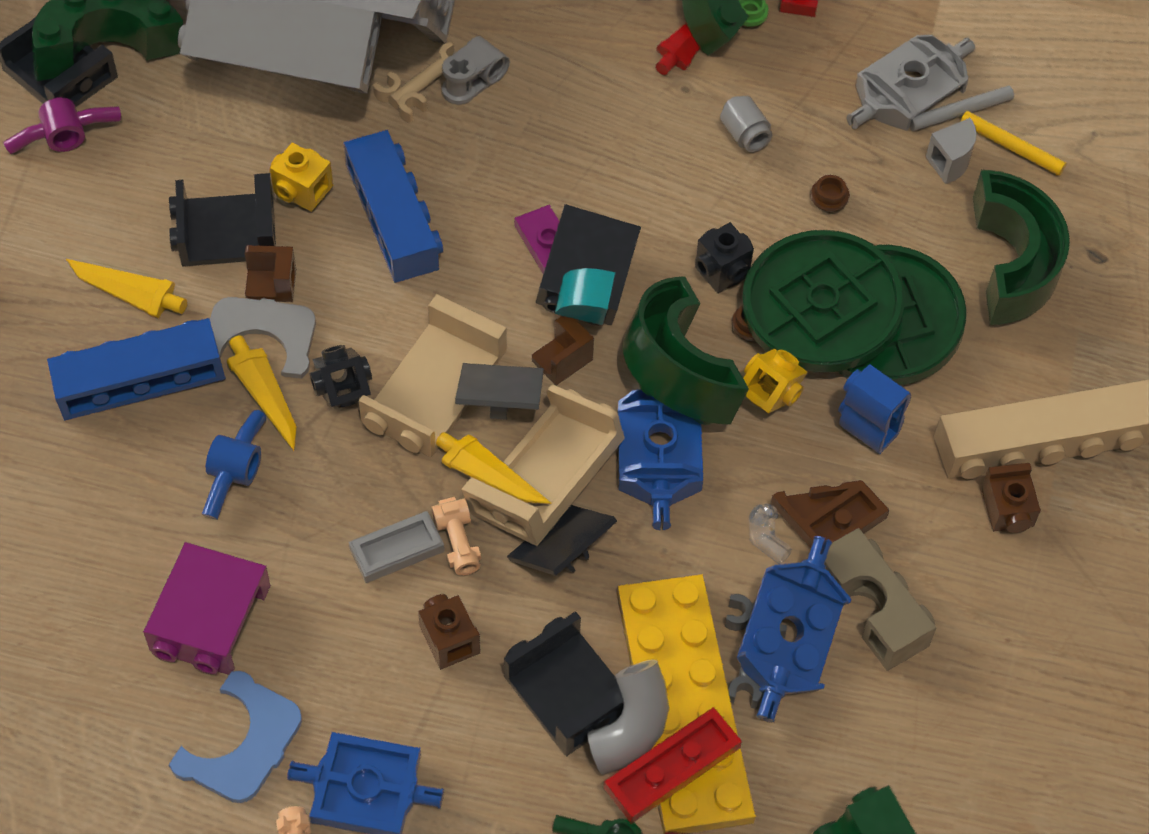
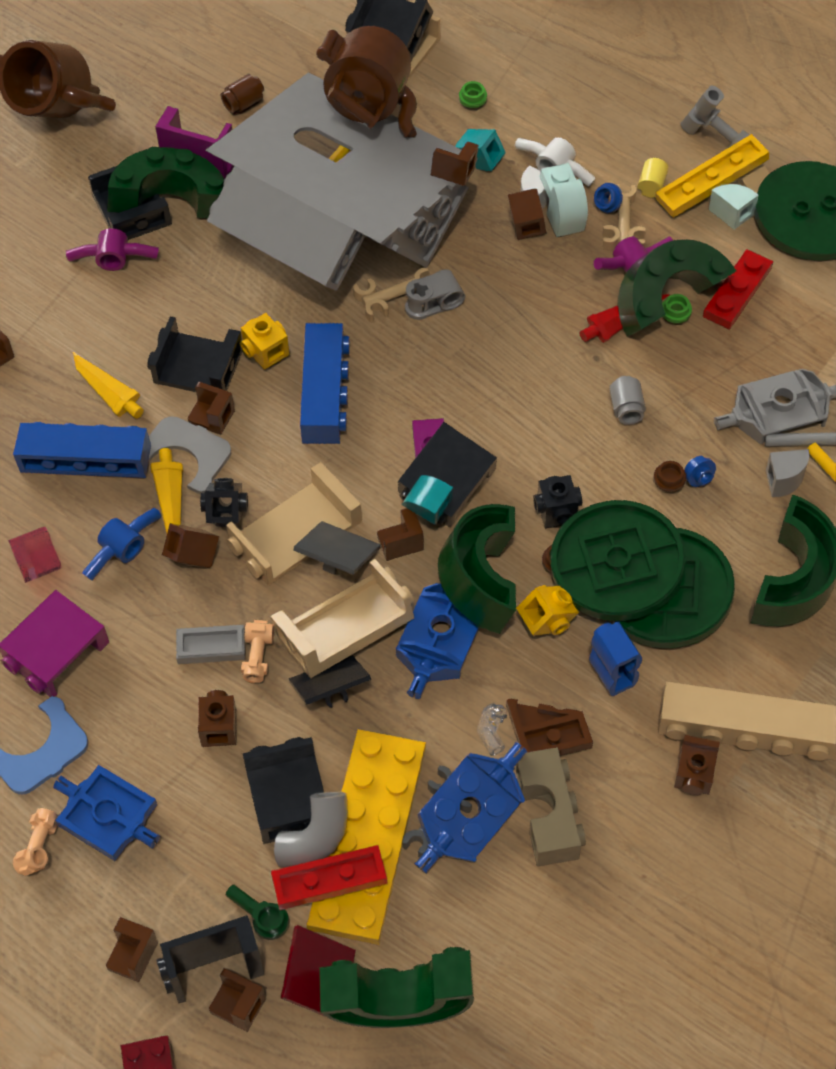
camera: 25 degrees right, 0 degrees up
(132, 511) = (35, 554): none -> clear pink panel
(320, 439) = (190, 545): none -> reddish brown panel
(478, 462) = (297, 601): yellow bar -> none
(861, 177) = (700, 471): none -> blue plate

